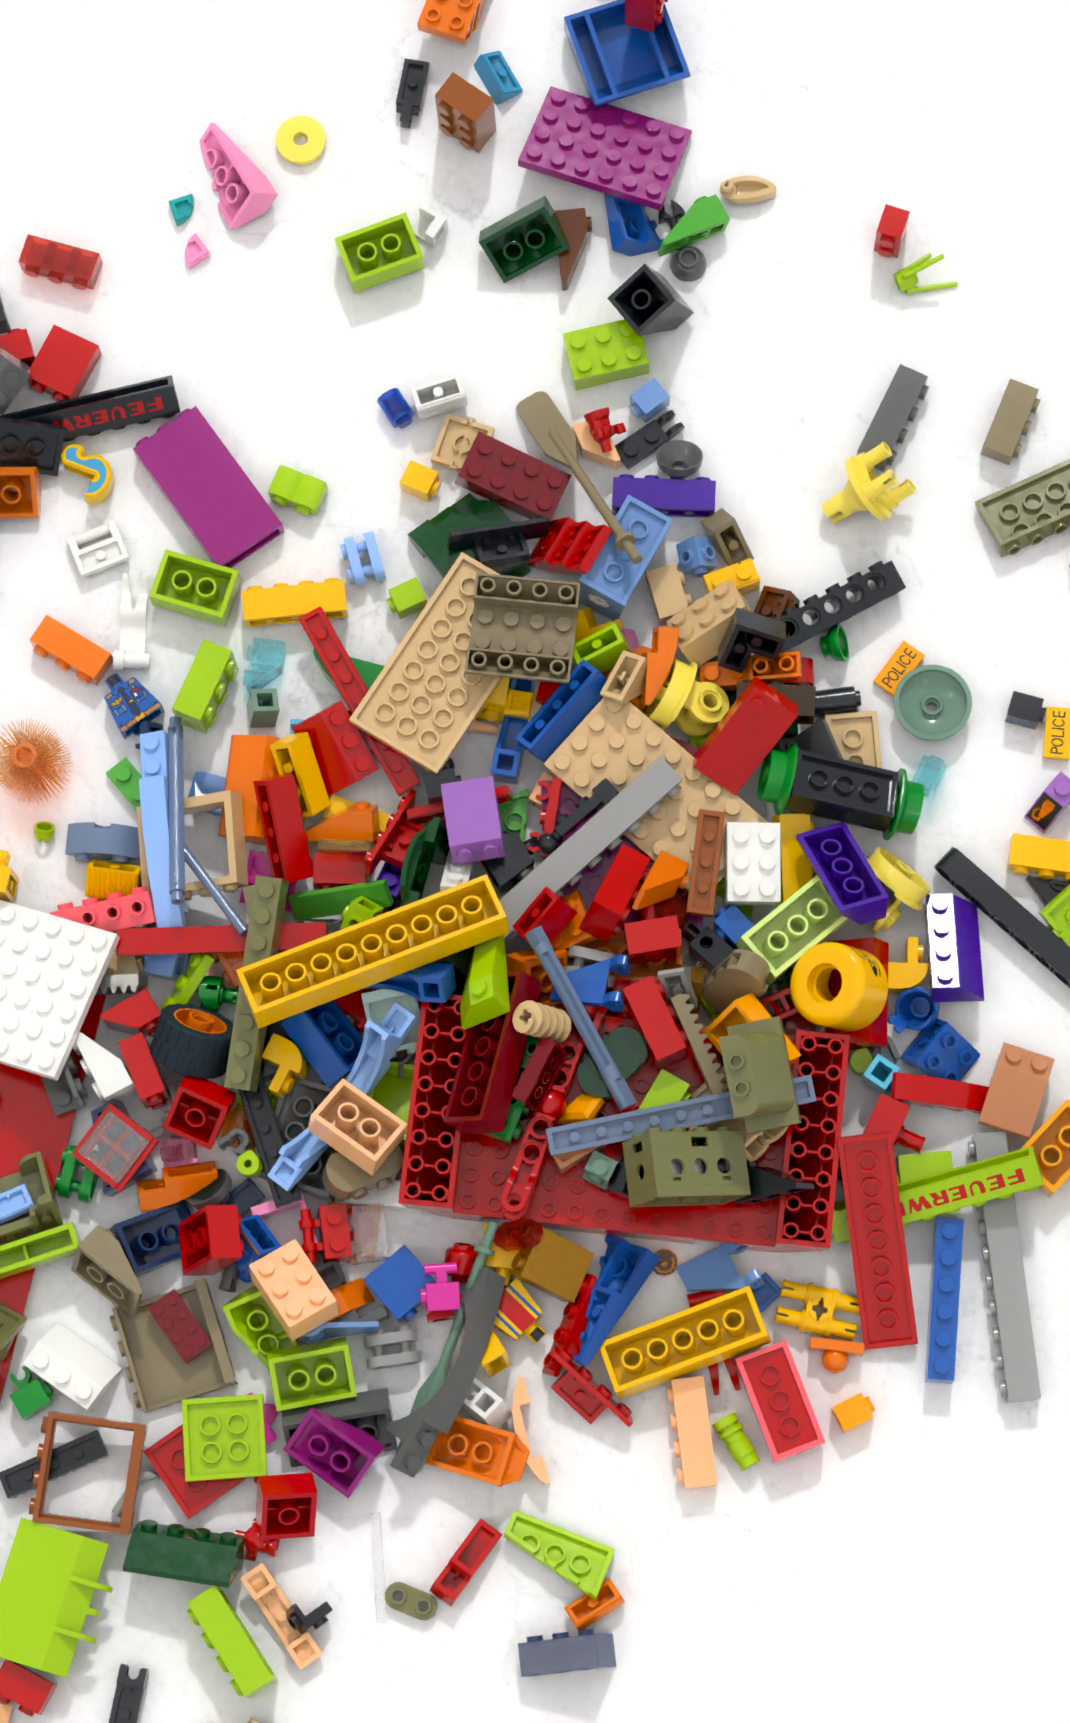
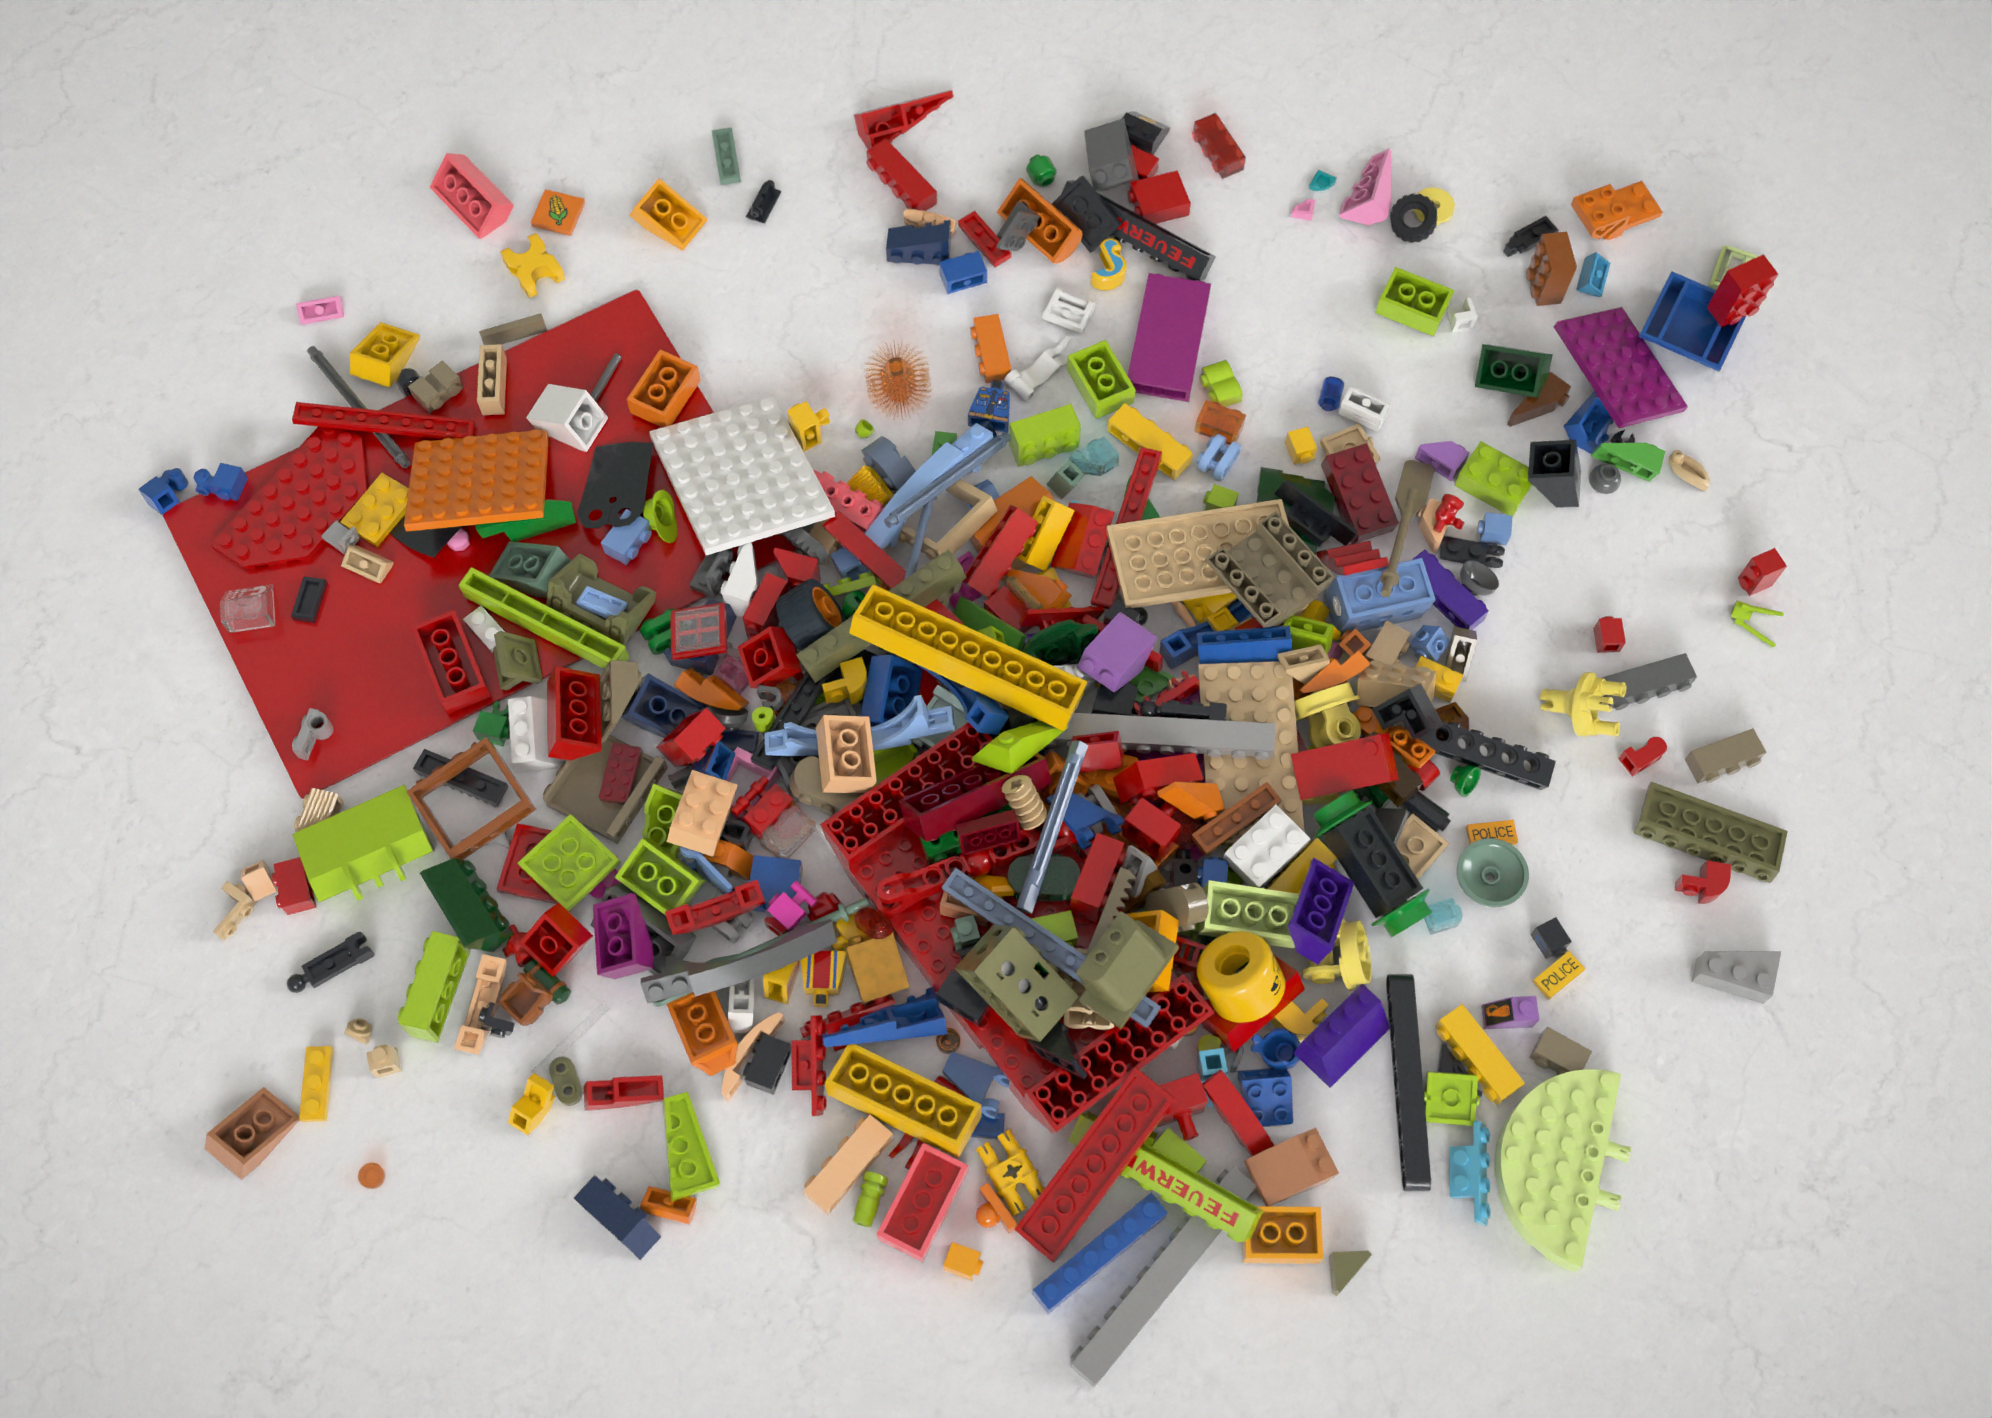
camera: 40 degrees right, 10 degrees down
(89, 1319) = (573, 714): none -> red slope
(279, 171) = (1409, 202): none -> black tyre
(311, 1565) = (532, 993): none -> dark orange piece
(332, 526) = (1220, 420): none -> clear orange brick
(383, 1351) = (716, 910): none -> red slope
(410, 1645) = (533, 1105): none -> yellow brick
(545, 375) = (1444, 456): none -> medium lavender slope
(551, 1424) = (767, 1064): none -> black brick
(640, 617) = (1353, 641): none -> orange brick
(652, 1221) = (962, 998): none -> black brick
(825, 404) = (1609, 635): none -> red brick
(951, 476) = (1644, 757): none -> red leg

